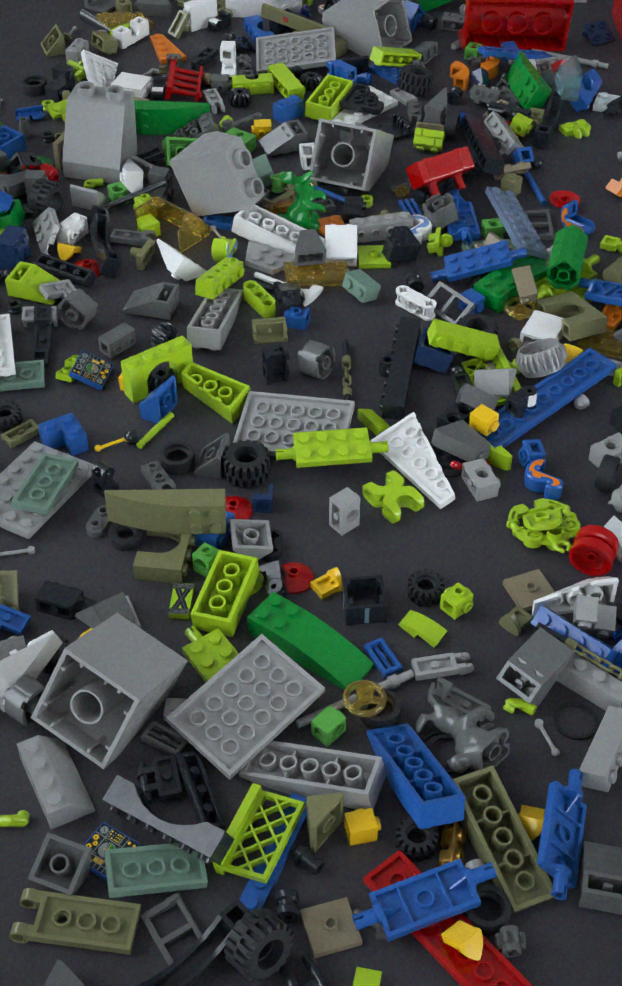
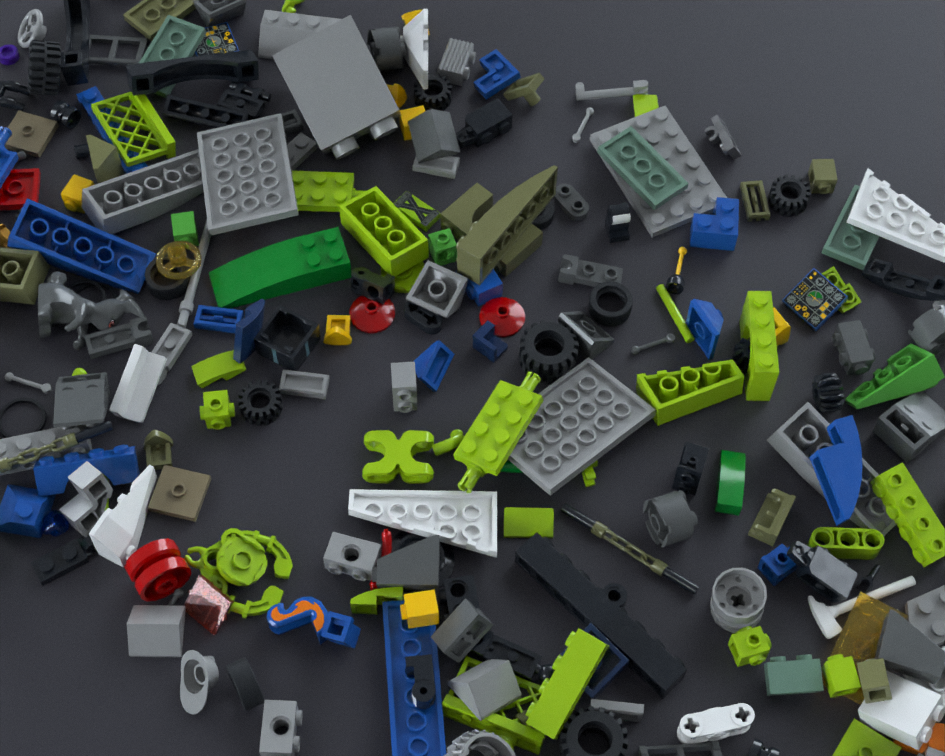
camera: 125 degrees right, 15 degrees up
(113, 313) = (906, 373): none -> bright green wedge
(177, 425) = (670, 338): none -> dark grey hinge
(220, 301) = (840, 468): none -> blue slope
(252, 357) = (730, 482): none -> green slope
(309, 522) = (433, 364): none -> blue slope
(338, 251) = (874, 680): none -> olive brick
(340, 315) = (742, 587): none -> light grey wheel
(345, 263) = (840, 676): none -> lime brick
(354, 479) = (448, 444): none -> lime arm
(360, 305) = (749, 646): none -> lime brick
(383, 608) = (247, 330): none -> dark blue slope
(392, 582) = (304, 384): none -> light grey tile
(481, 658) = (137, 384): none -> white panel
(581, 516) = (208, 604): none -> clear red piece

